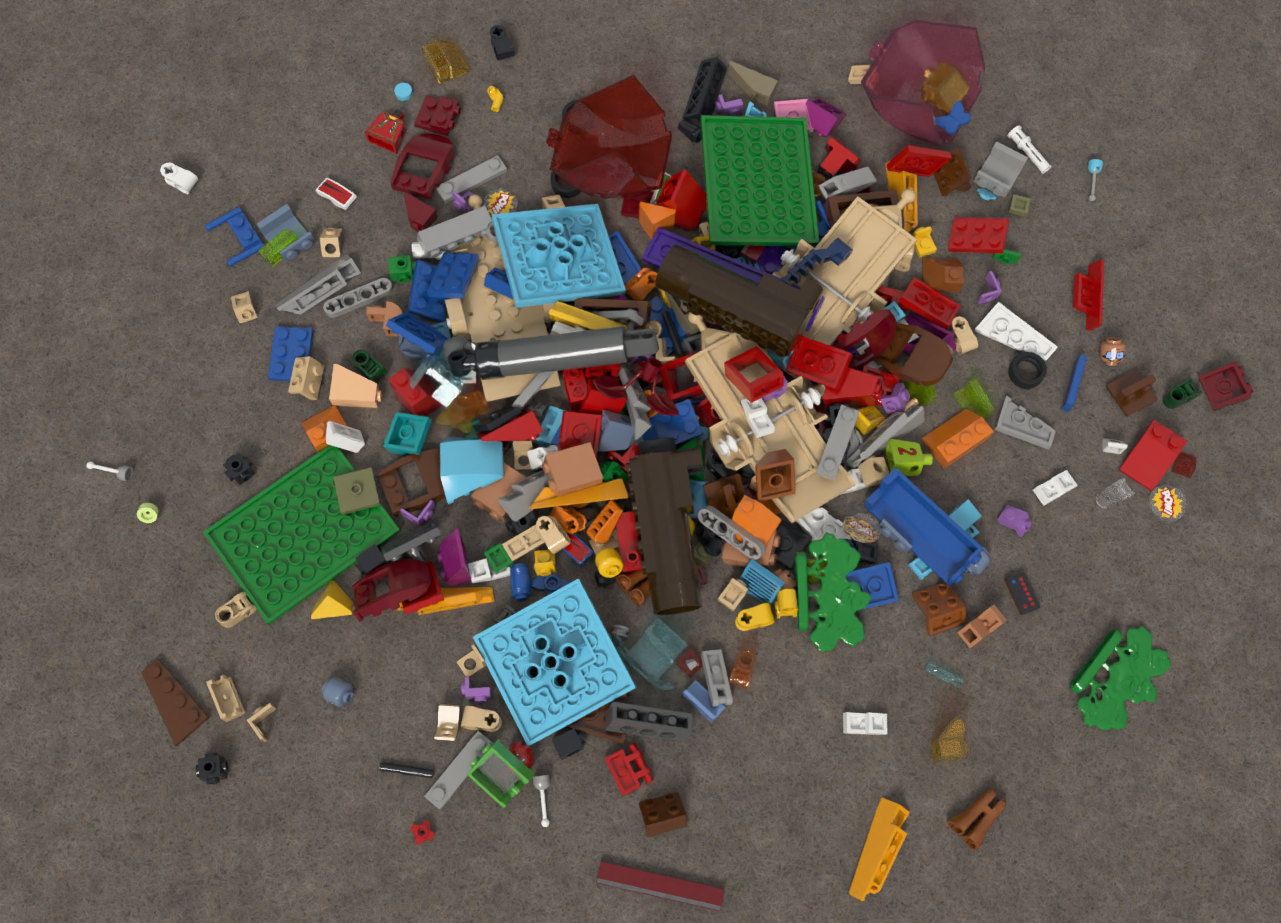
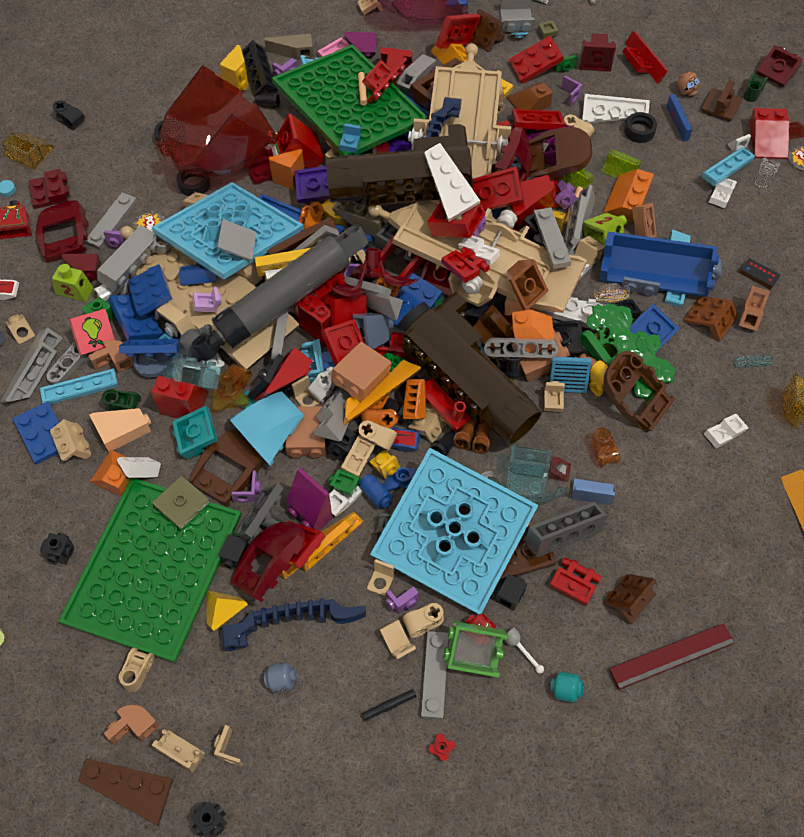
camera: 30 degrees left, 10 degrees down
(210, 653) = (133, 718): none -> nougat brick
(327, 634) = (235, 635): none -> dark blue piece
(345, 329) = (79, 387): none -> medium azure tile
(383, 285) = (91, 331): none -> coral tile
(393, 223) = (71, 283): none -> lime torso
(491, 318) = (207, 301): none -> lavender bracket
(497, 98) = (91, 154): yellow arm -> none
(549, 276) = (236, 240): none -> light grey piece
(554, 853) = (567, 687): none -> teal head
(609, 563) = (441, 428): yellow head -> none
(678, 83) = (234, 69): none -> yellow slope
(716, 677) = (590, 466): light grey plate -> none
(724, 227) = (350, 138): none -> dark azure bracket
(724, 424) = (461, 266): none -> red plate
(758, 617) = (583, 405): yellow piece -> none
(762, 346) = (452, 187): none -> white wing
(777, 176) = (362, 89): none -> light nougat piece
(800, 616) = (621, 377): none -> reddish brown slope
(801, 173) = (379, 76): none -> red bracket
(948, 475) = (644, 220): none -> nougat slope
(1015, 519) = (714, 226): medium lavender bracket -> none
(1021, 425) = (666, 165): light grey wing -> none
(1043, 265) = (597, 54): none -> dark red panel
(1080, 465) = (728, 166): none -> medium azure tile

